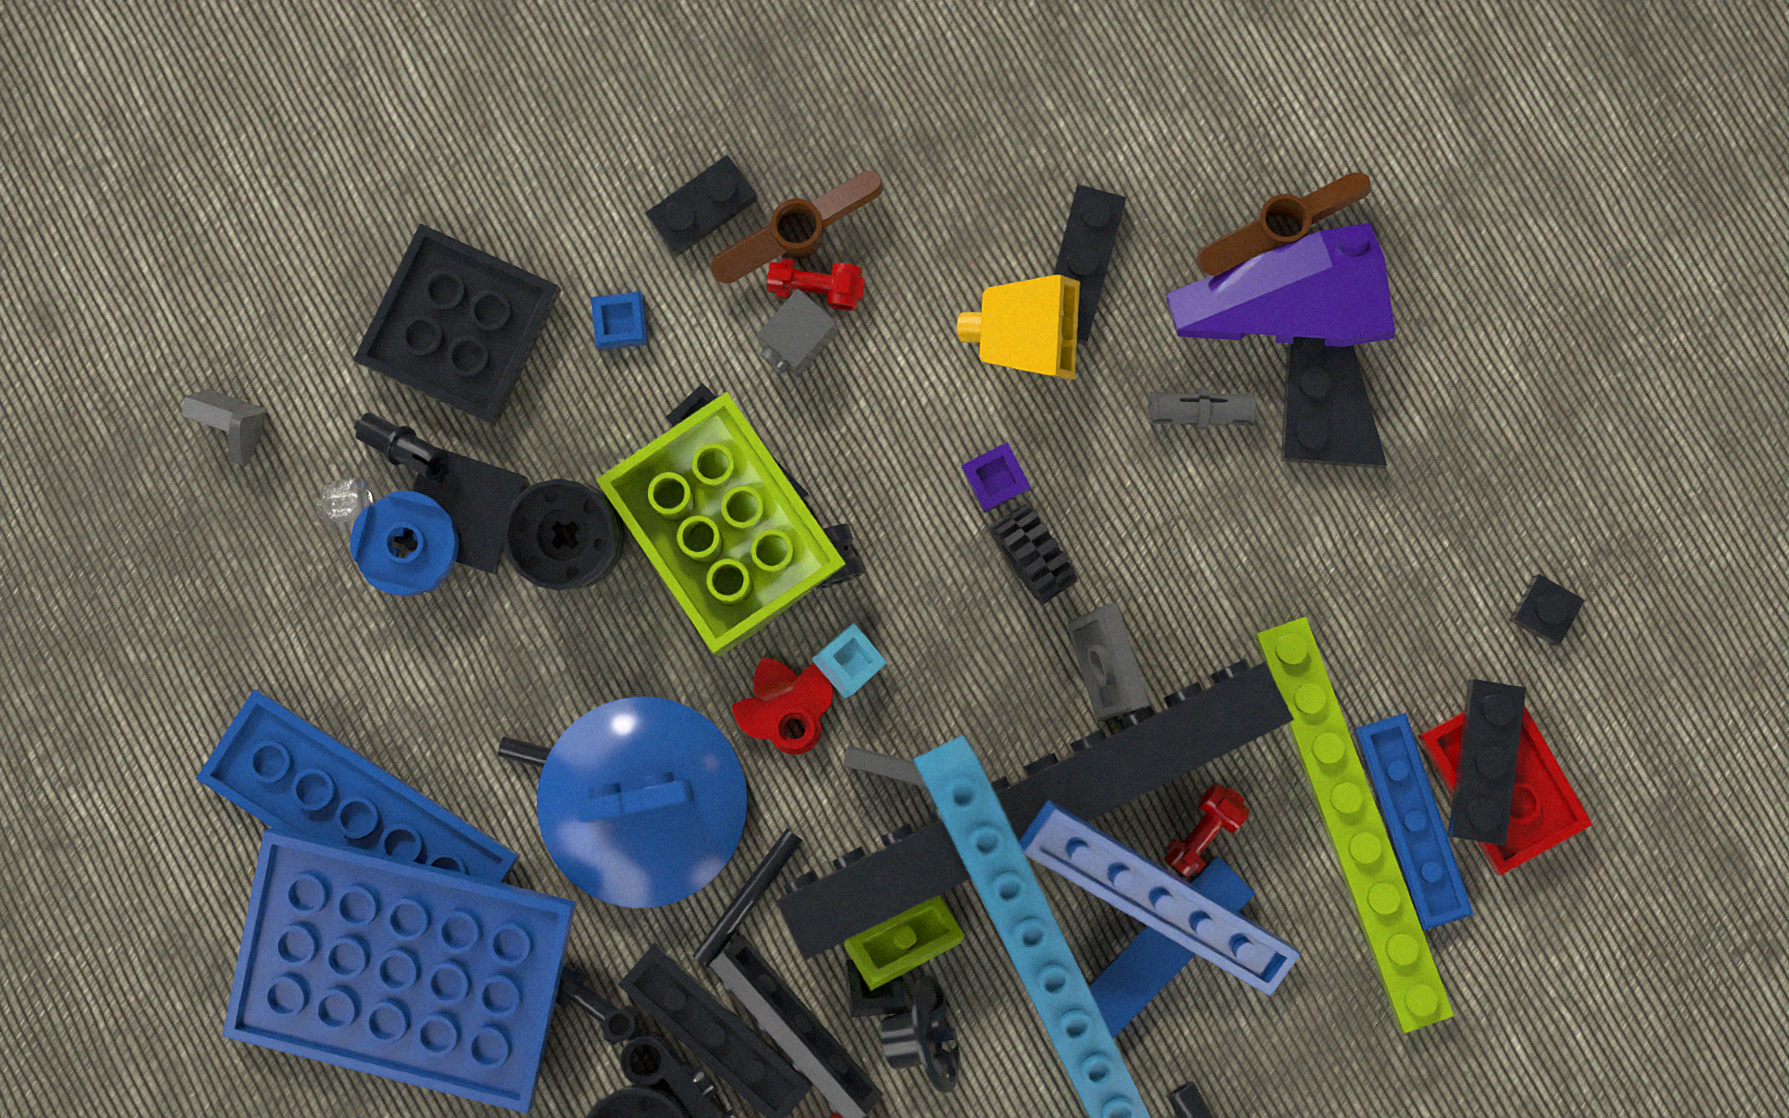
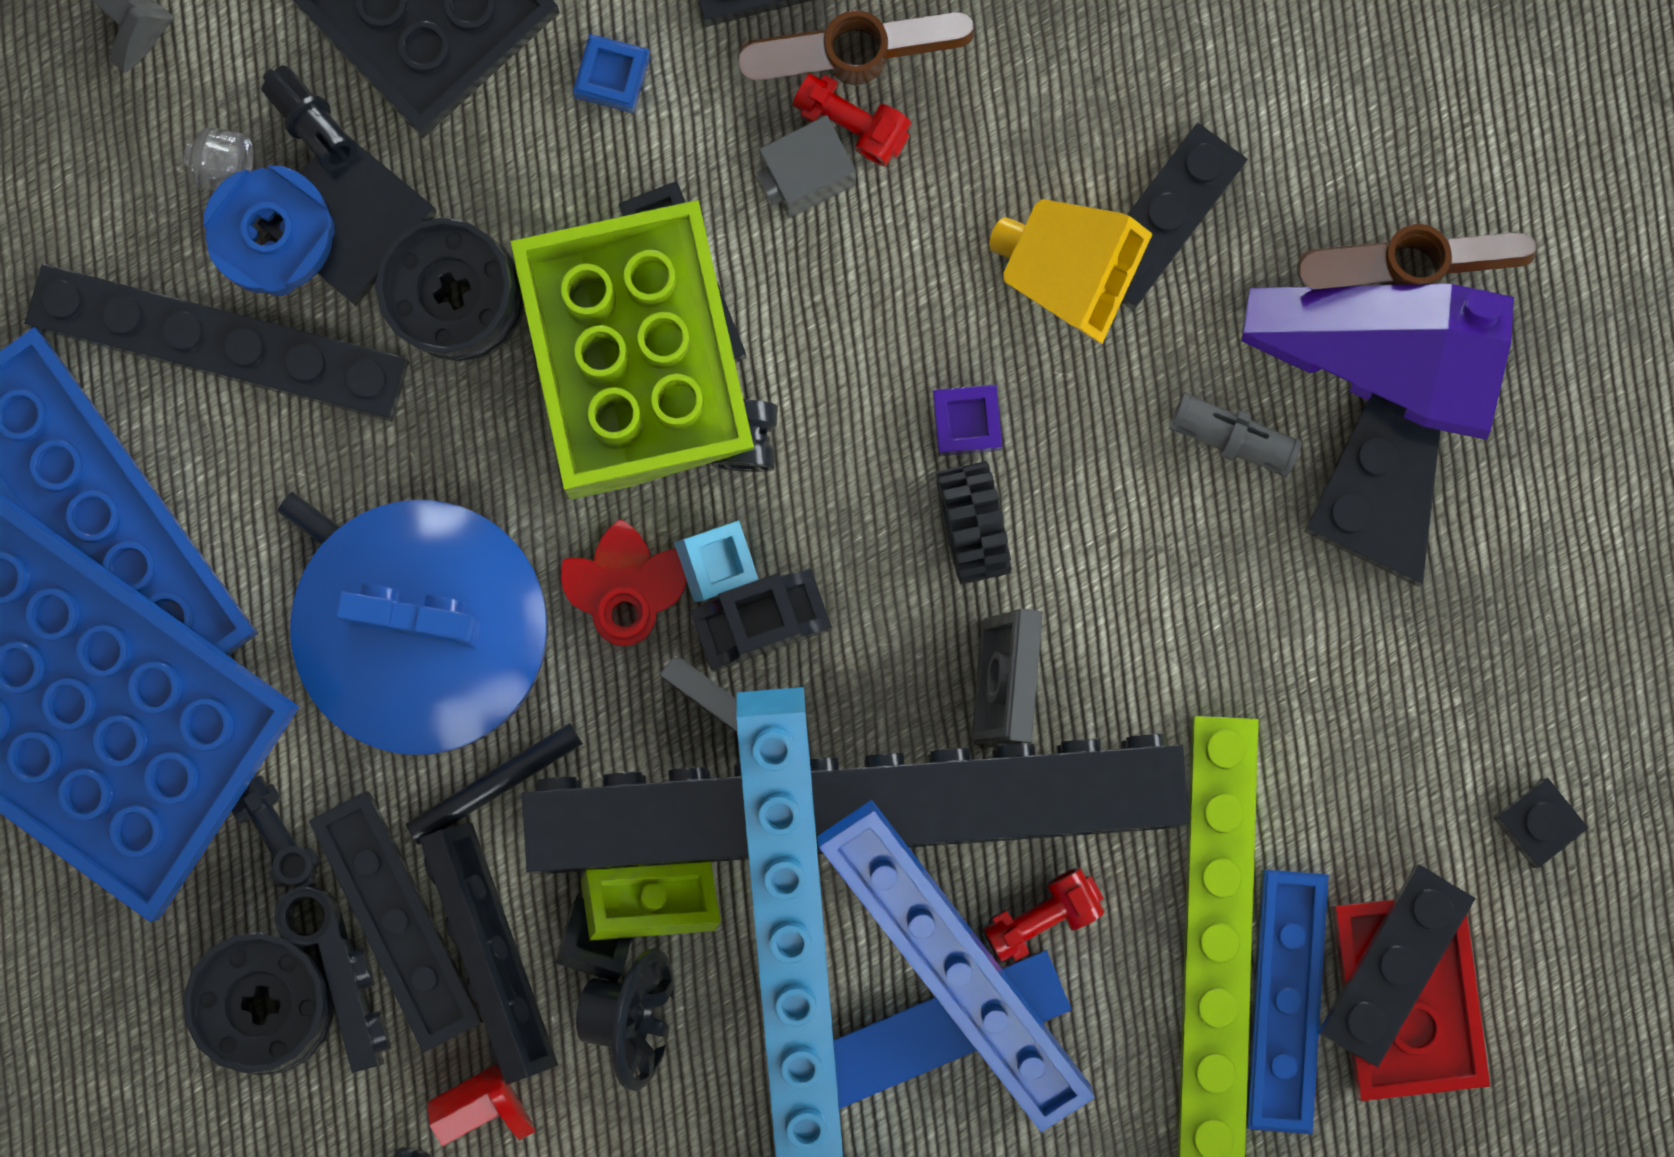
camera: 20 degrees right, 0 degrees up
(398, 645) = (217, 342): none -> black plate
(900, 691) = (760, 618): none -> black brick

